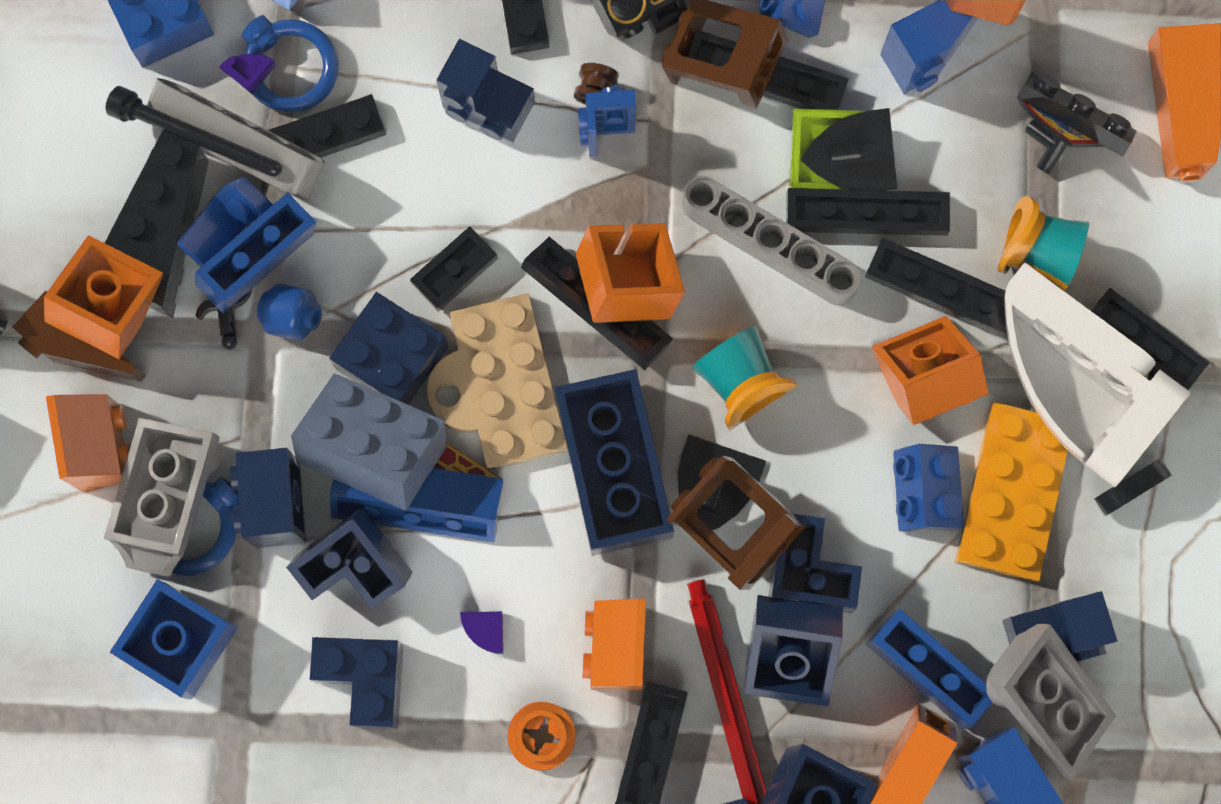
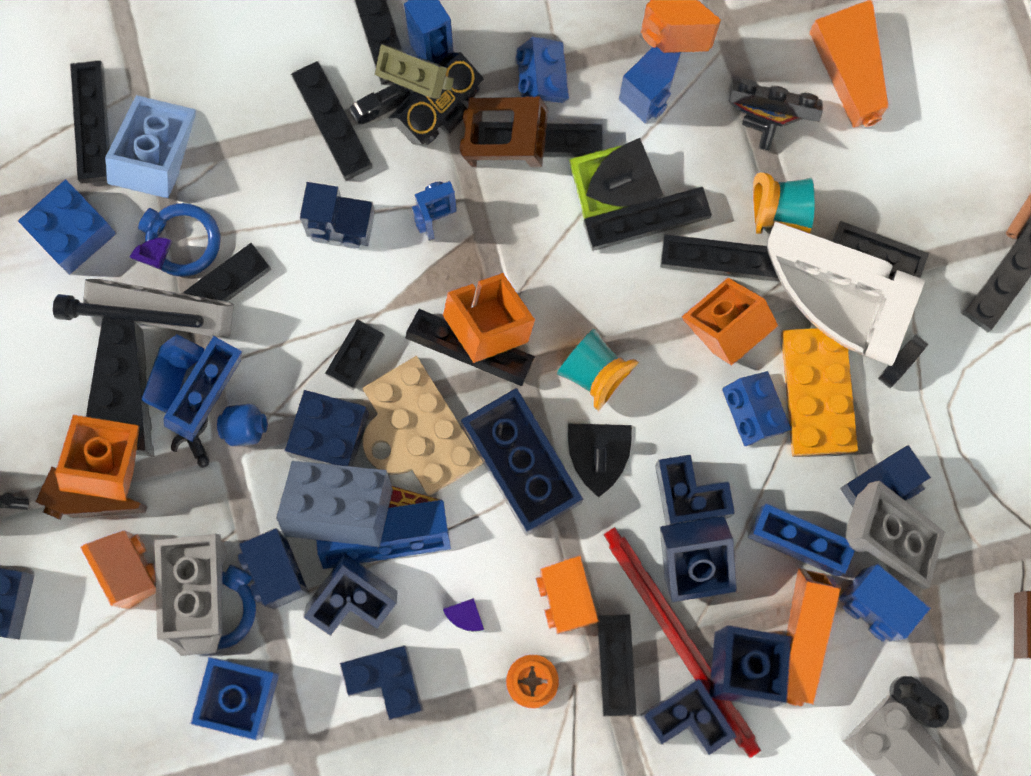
camera: 20 degrees left, 0 degrees up
(594, 79) = (415, 182): reddish brown wheel -> none
(762, 222) = (571, 250): light grey beam -> none
(765, 544) = (653, 487): reddish brown window -> none

